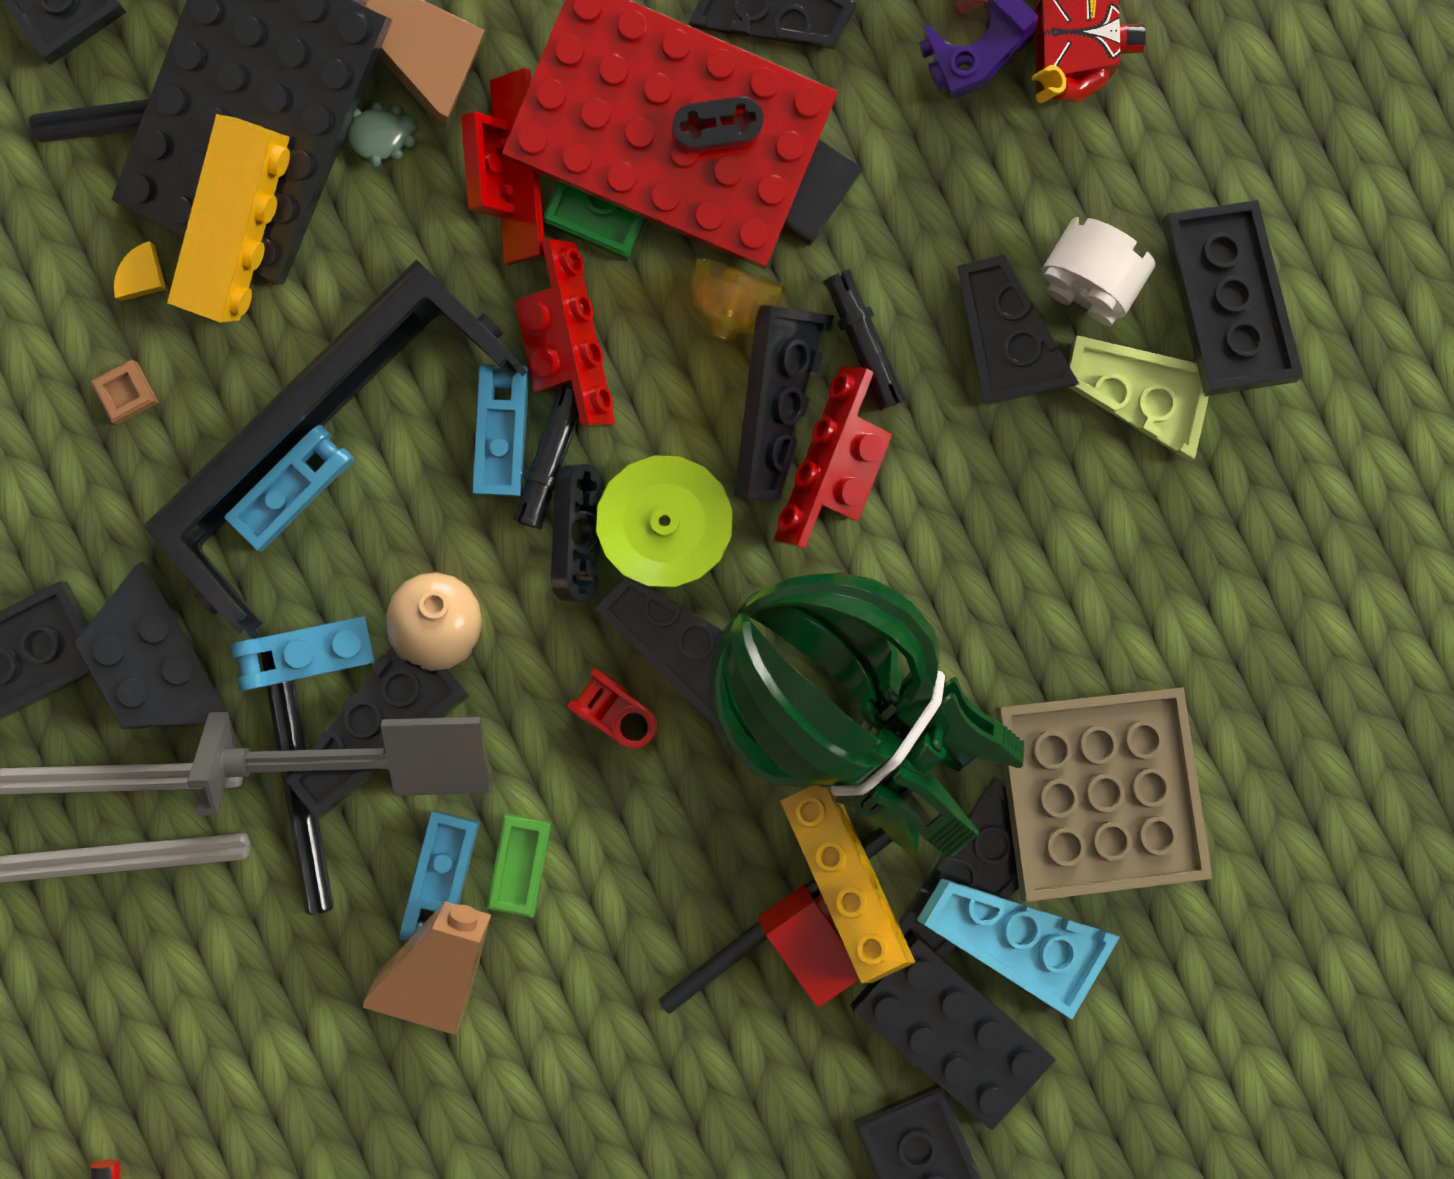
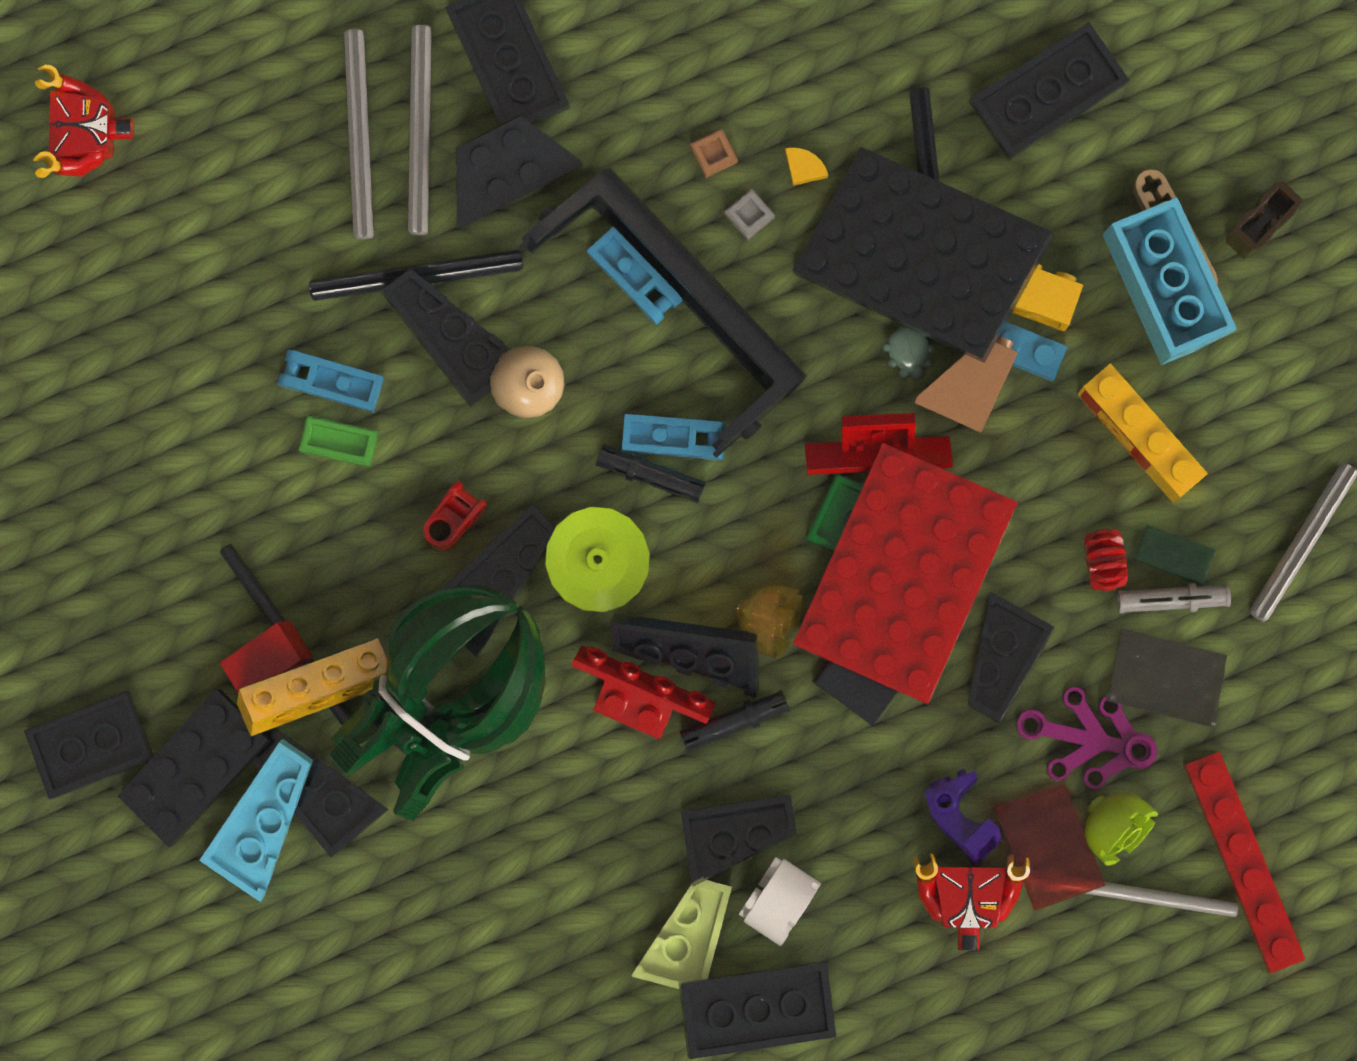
camera: 95 degrees right, 5 degrees down
(205, 344) = (749, 214): none -> light grey tile
(229, 219) = (835, 237): yellow brick -> none
(304, 653) = (507, 284): dark azure plate -> none
(420, 754) = (426, 368): dark grey piece -> none
(433, 970) = (263, 375): medium nougat slope -> none
(562, 336) = (744, 486): red bracket -> none
(563, 547) = (567, 480): black beam -> none
(716, 112) = (908, 606): black beam -> none
(1104, 795) = (371, 891): dark tan plate -> none

